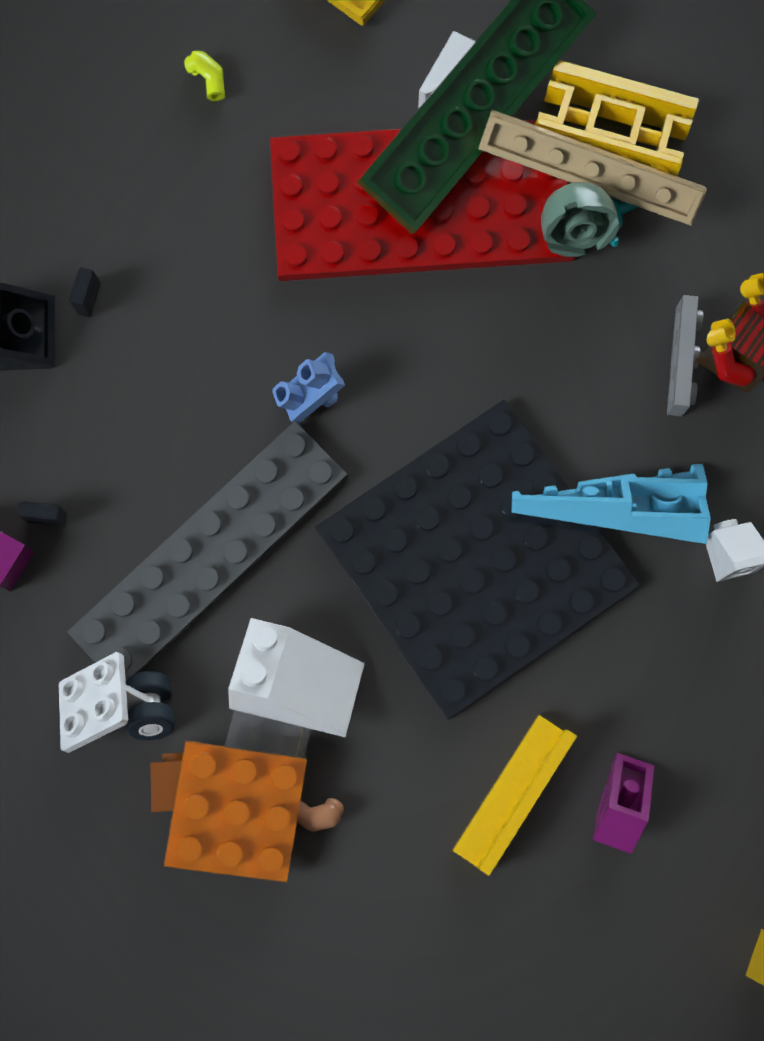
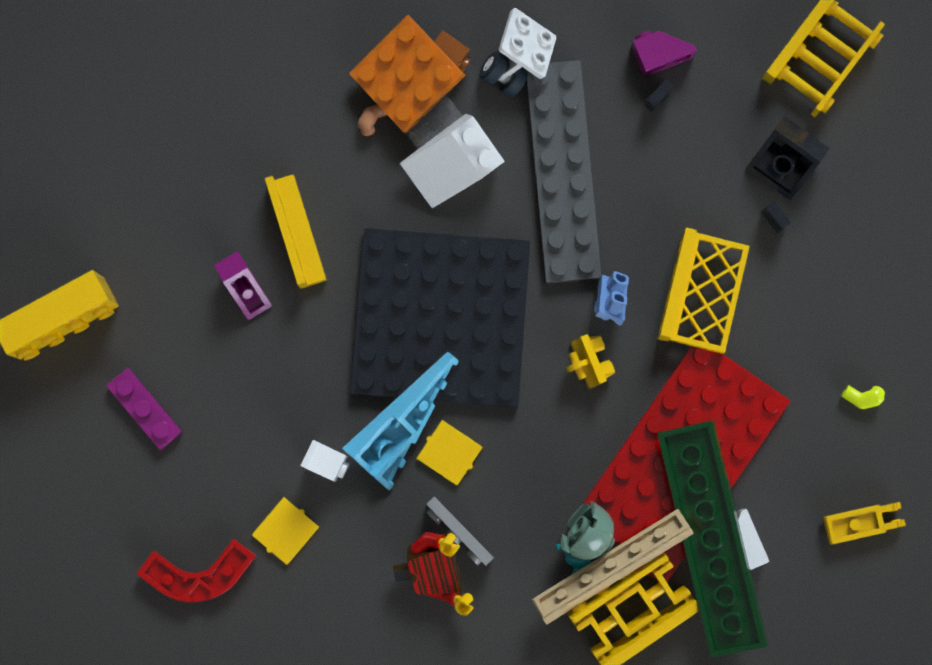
camera: 125 degrees right, 5 degrees up
(231, 335) = (679, 285): none -> yellow fence
(399, 364) = (586, 362): none -> yellow hips
(609, 434) = (449, 452): none -> yellow piece

